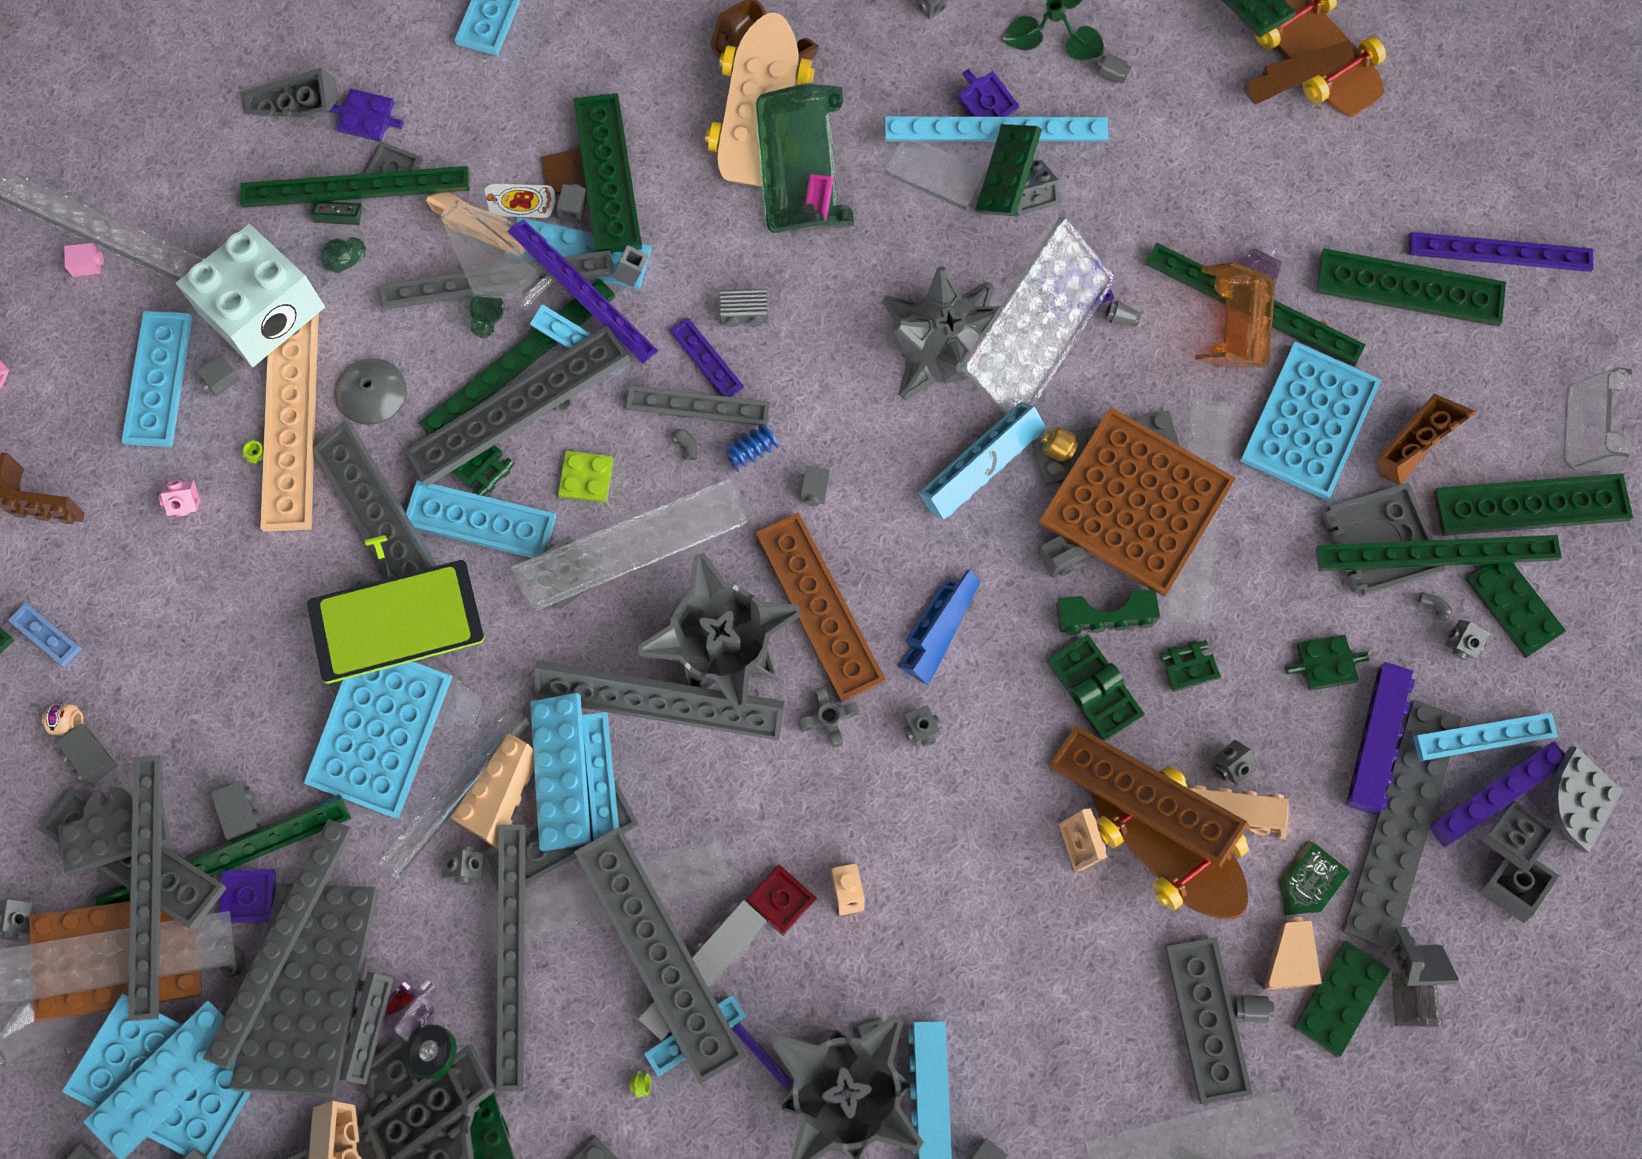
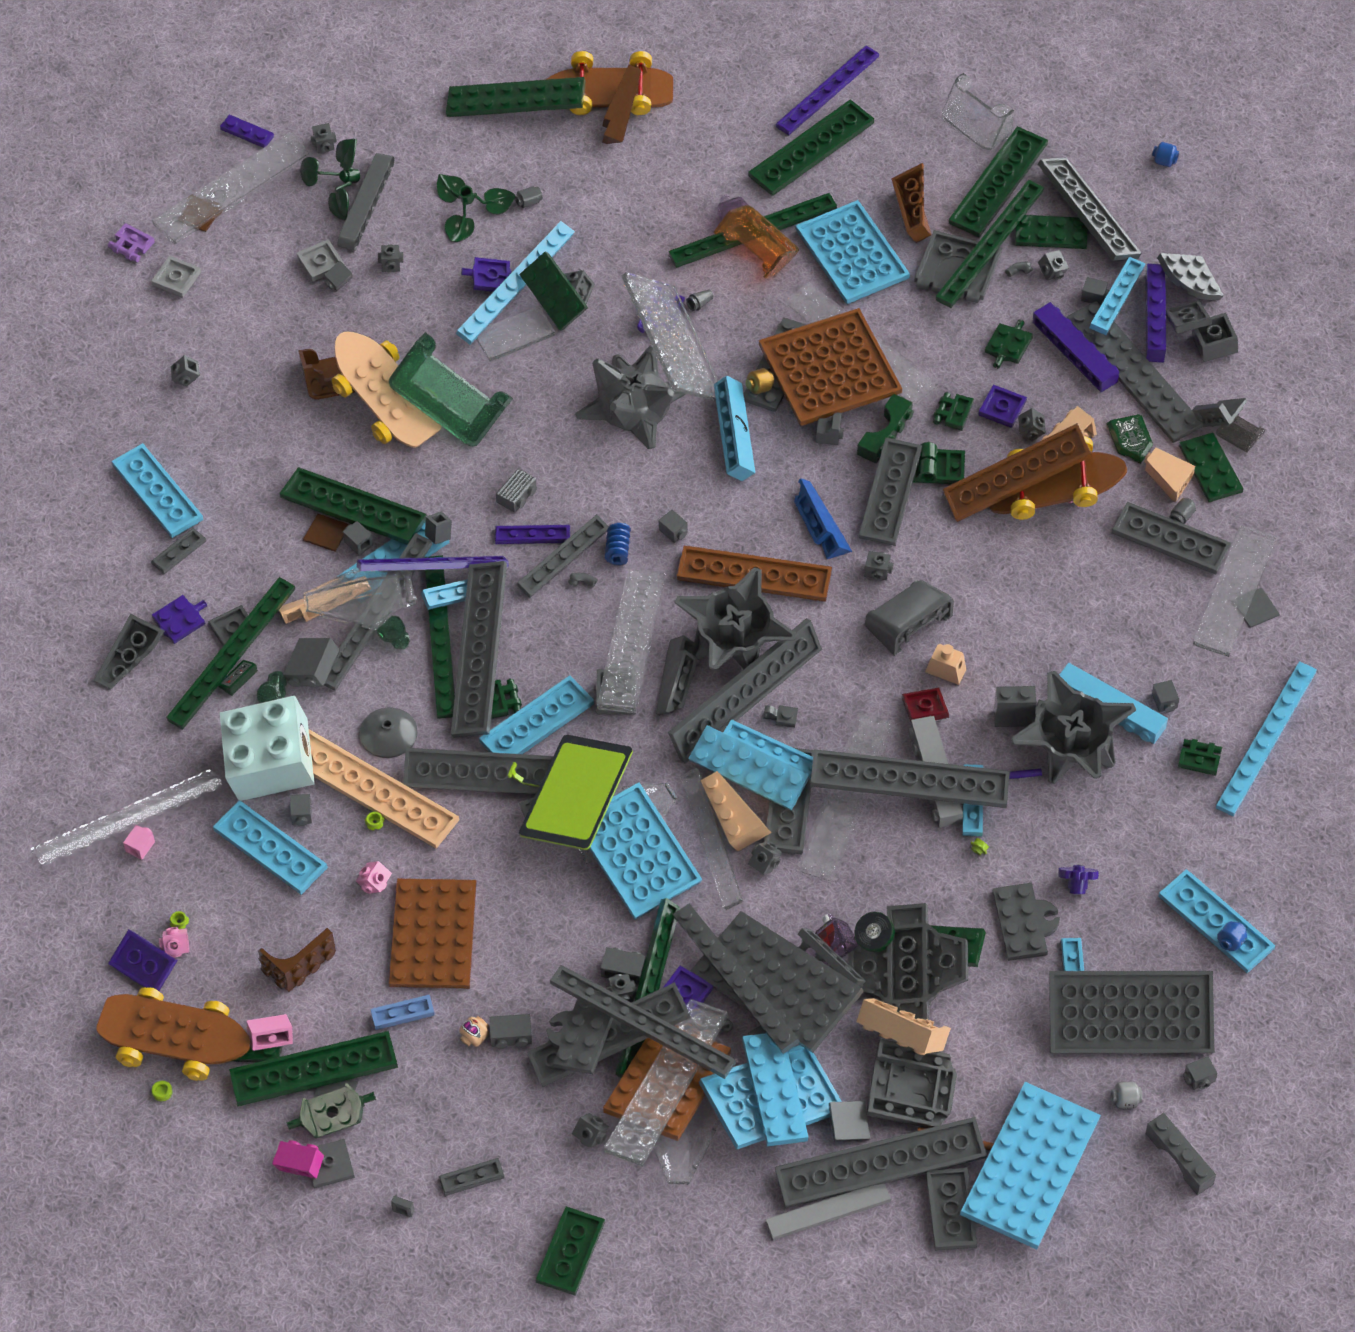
camera: 50 degrees left, 15 degrees down
(18, 351) = (179, 915): none -> lime plate
(159, 598) = (433, 933): none -> dark orange plate
(209, 835) = (622, 986): none -> dark grey brick
(390, 264) = (311, 662): none -> dark grey brick
(445, 60) = (178, 550): none -> dark grey tile
(511, 958) = (837, 856): dark grey plate -> none
(520, 200) = (324, 568): sticker -> none
(586, 477) = (557, 647): lime plate -> none
(632, 618) = (676, 675): none -> dark grey wedge
(664, 760) = (784, 715): none -> dark grey plate
(811, 722) = (830, 605): dark grey pin -> none
(819, 193) = (474, 398): dark pink tile -> none
(839, 1002) = (1014, 706): none -> dark grey brick
(883, 801) = (908, 613): none -> dark grey windscreen
(1027, 673) = (890, 491): none -> dark grey plate
(1083, 840) = (1016, 526): light nougat plate -> none
(1237, 713) = (1002, 406): none -> dark purple plate
(1472, 707) = (1094, 291): none -> dark grey brick
(1577, 626) = (1089, 208): none -> dark grey plate

